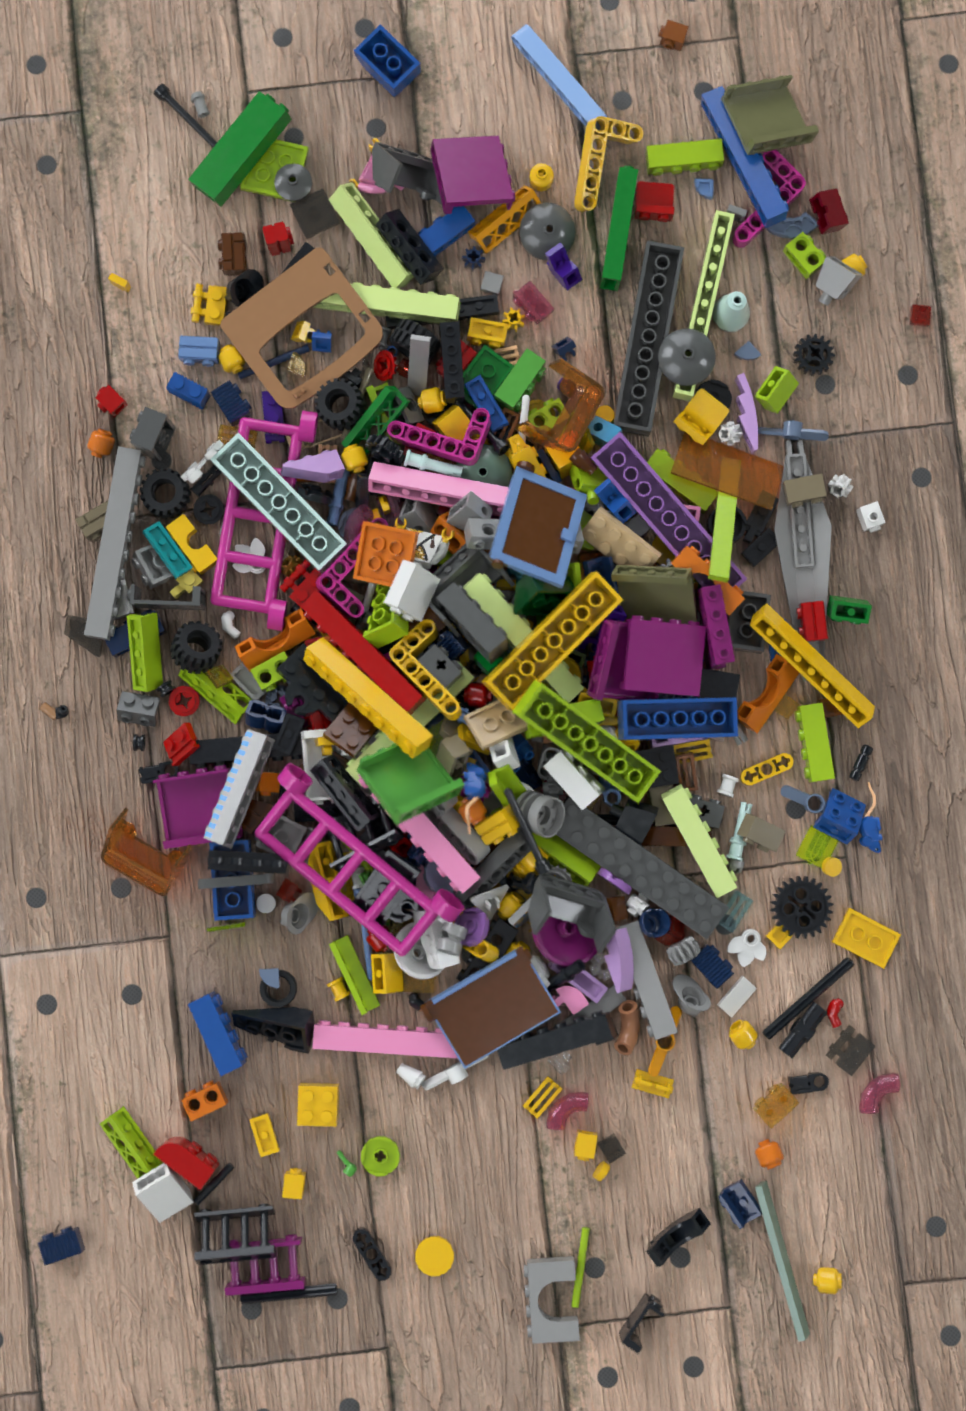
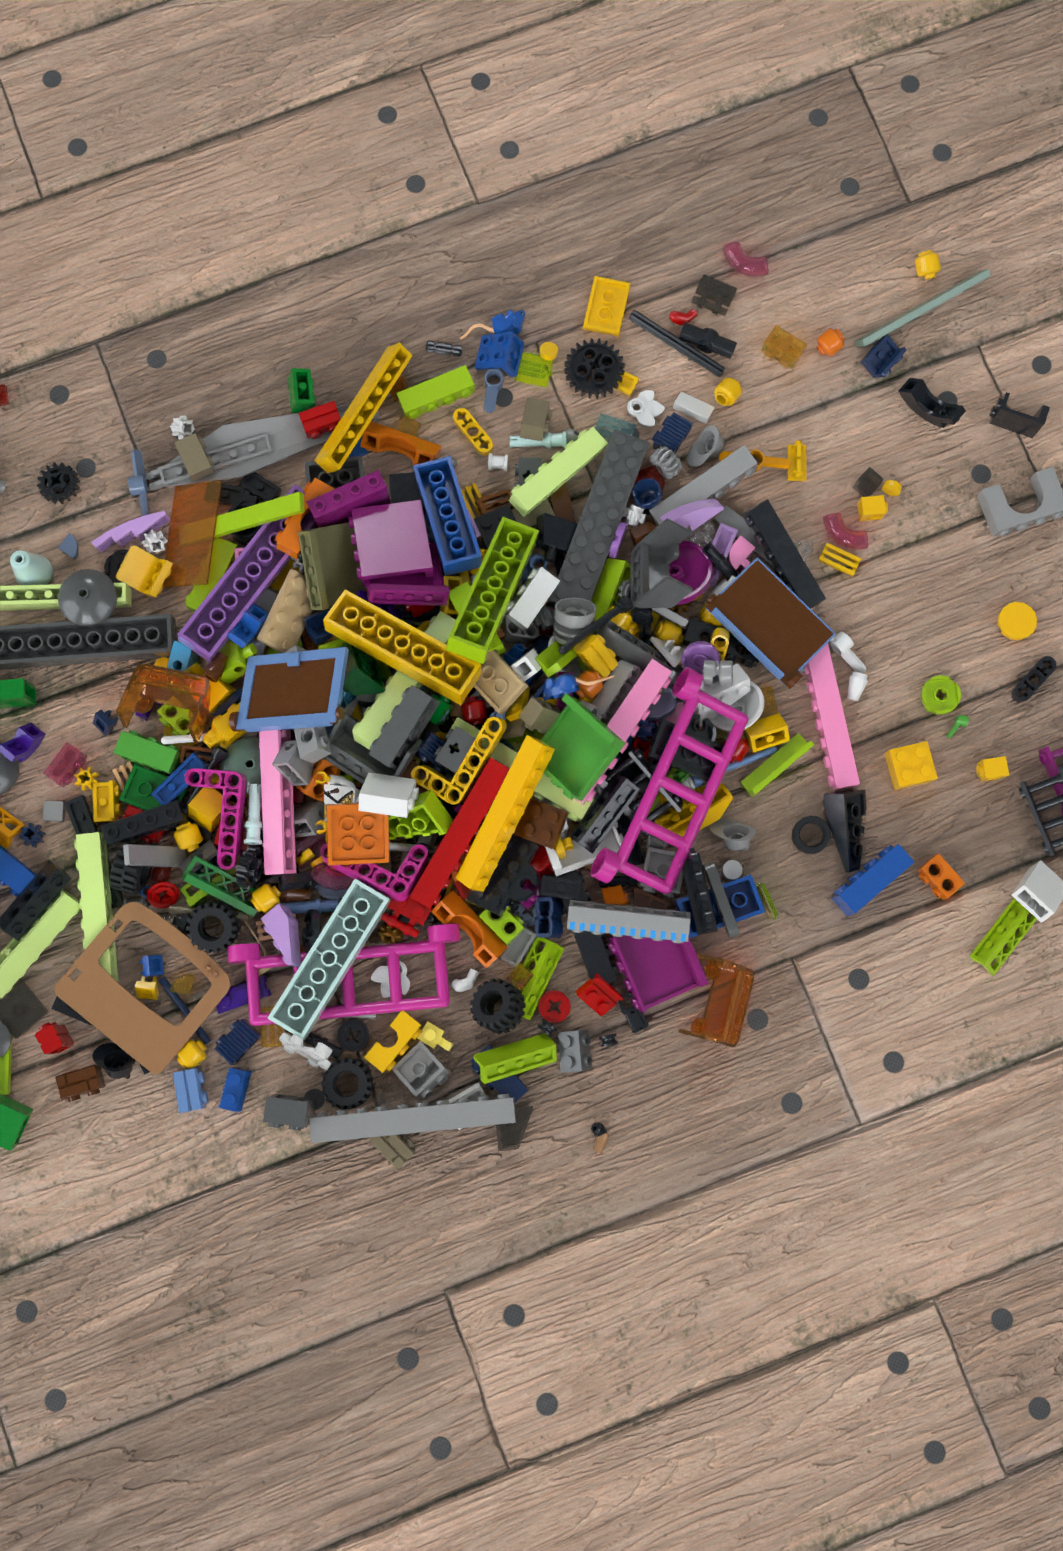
camera: 100 degrees left, 5 degrees down
(101, 443) = (311, 1166): orange head -> none
(110, 401) = (264, 1169): red brick -> none
(119, 282) = (137, 1194): yellow tile -> none
(167, 550) = (405, 1063): teal plate -> none
(187, 1160) = (1002, 875): red brick -> none
(198, 600) = (453, 1016): dark grey panel -> none
(213, 1183) = (1015, 847): black piece -> none
(215, 305) = (136, 1087): yellow plate -> none
(264, 1135) = (955, 810): yellow plate -> none
(270, 977) = (803, 842): sand blue tile -> none
(287, 890) = (714, 851): clear red tile -> none
(338, 989) = (795, 776): yellow bush -> none
(415, 1001) = (786, 697): black arm -> none
(580, 1267) = (979, 486): lime bar -> none
(629, 1027) = (751, 495): nougat cylinder -> none
(776, 389) = (101, 508): lime brick -> none
(806, 1084) = (756, 326): black piece -> none
(870, 517) = (206, 393): white brick -> none

